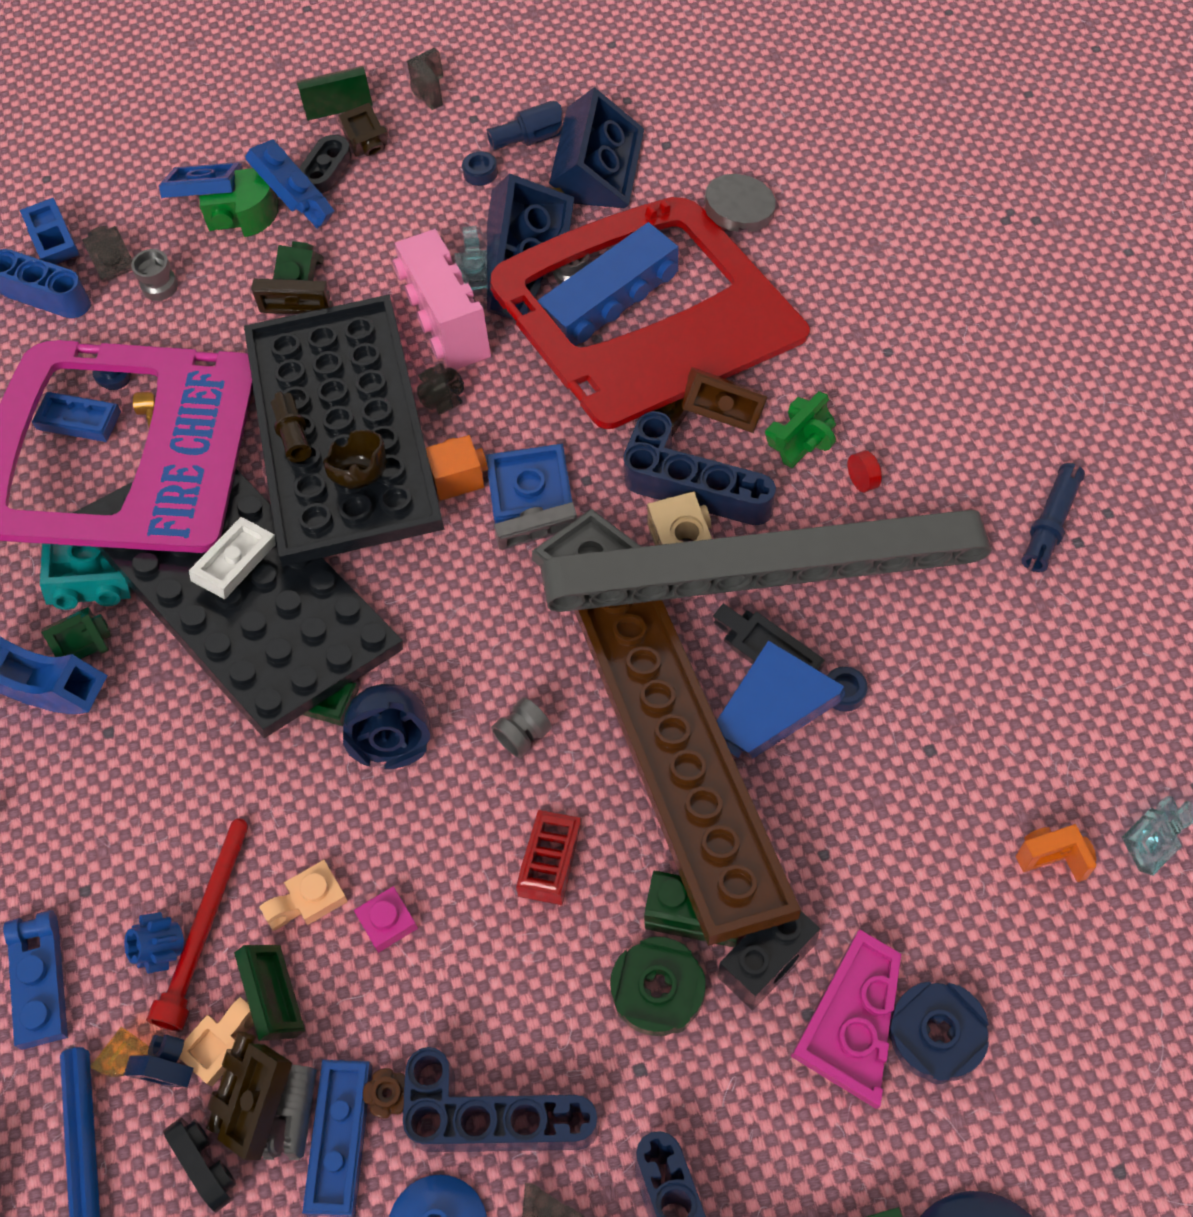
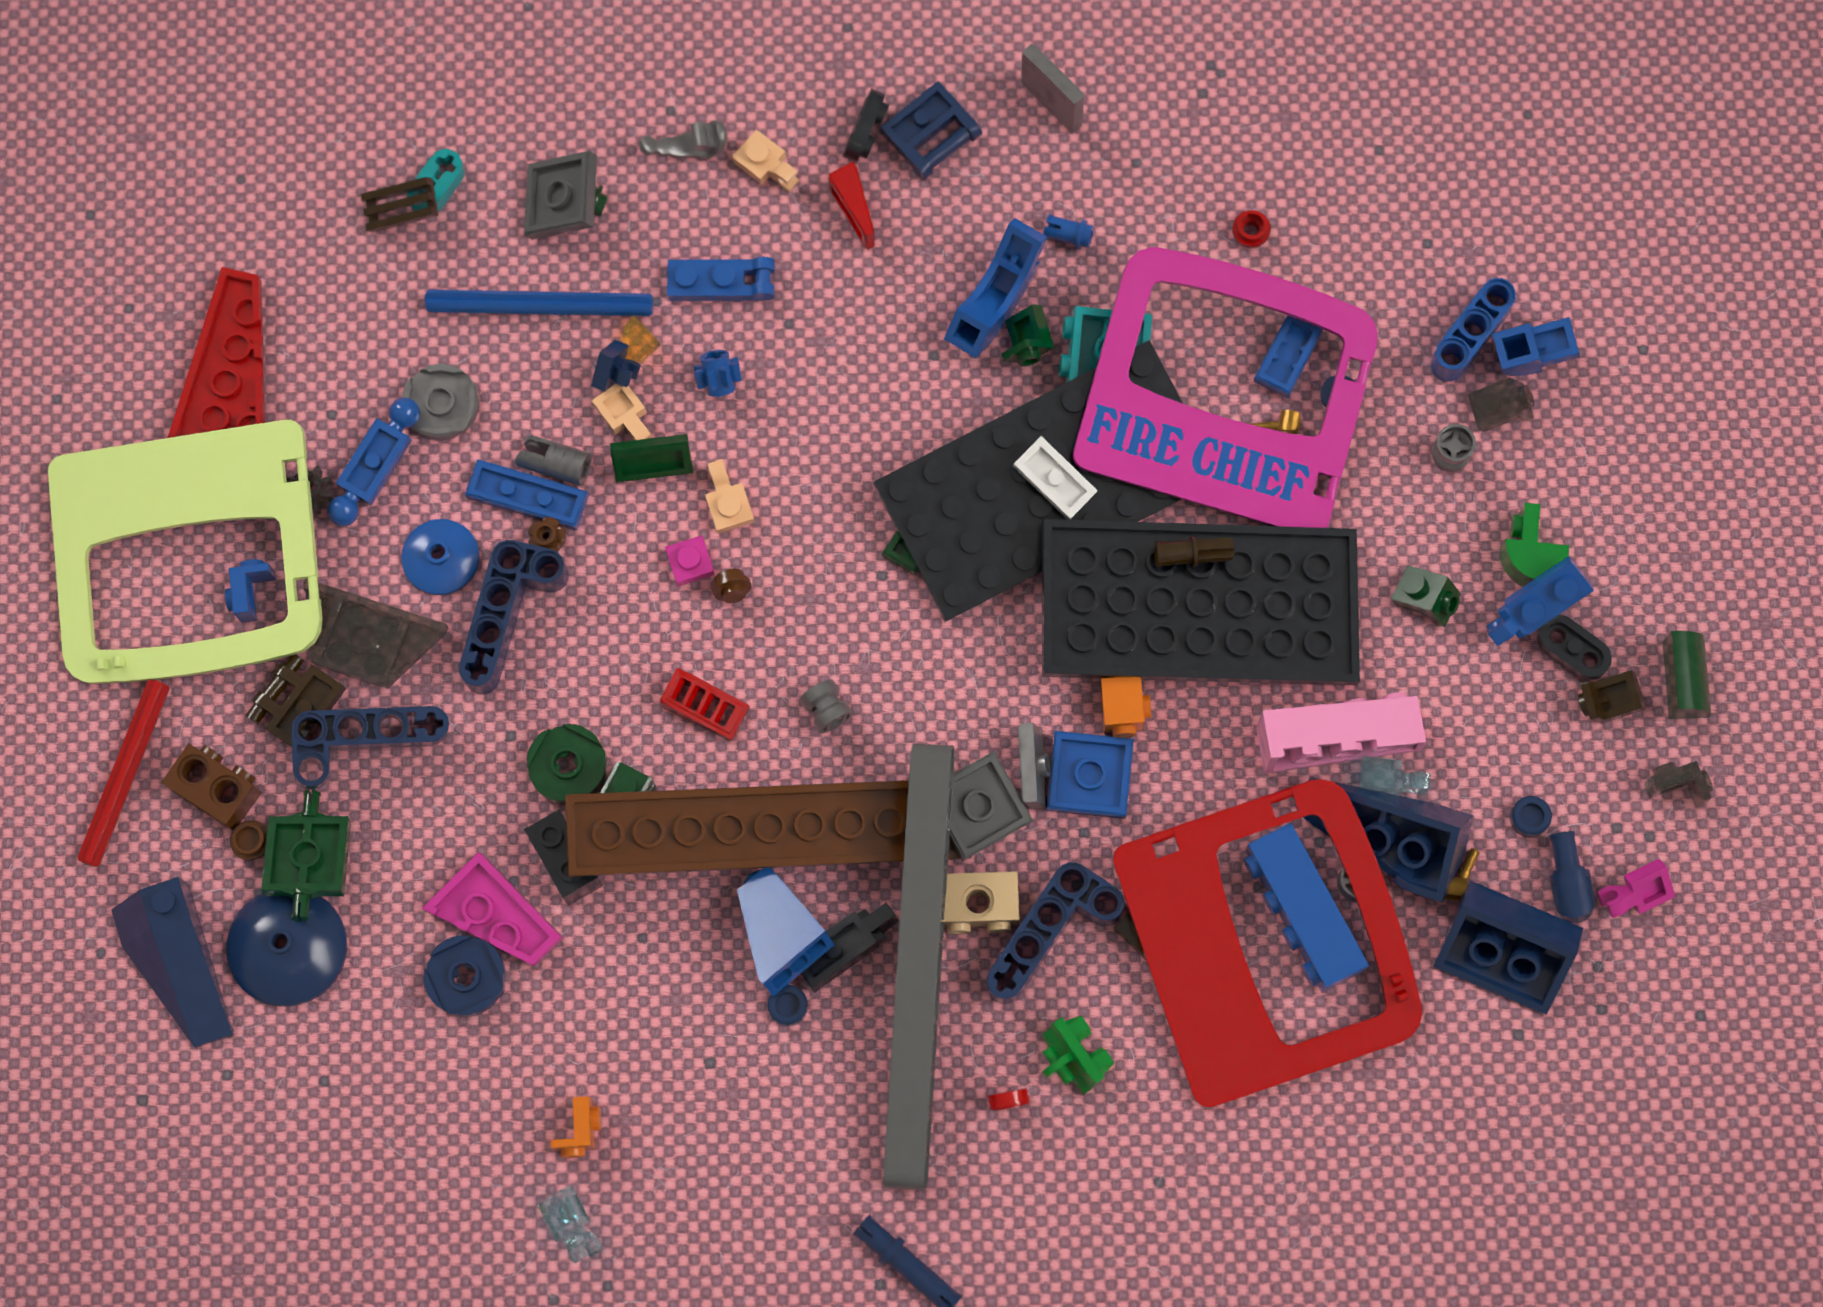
camera: 105 degrees right, 15 degrees up
(170, 1009) = (663, 381): red piece -> none
(199, 180) = (1574, 510): blue tile -> none
(209, 1178) = (545, 383): black plate -> none
(248, 1096) = (568, 428): dark brown plate -> none
(290, 295) = (1384, 583): dark brown tile -> none
(358, 461) = (1123, 602): dark brown hair -> none
(386, 726) = (860, 590): dark blue cylinder -> none
(407, 861) = (731, 586): none -> reddish brown plate
(440, 388) = (1220, 709): clear smoke gear -> none
(520, 83) = (1643, 890): none -> dark pink plate
(723, 400) = (1129, 984): reddish brown slope -> none
(739, 202) = (1396, 1084): flat silver tile -> none

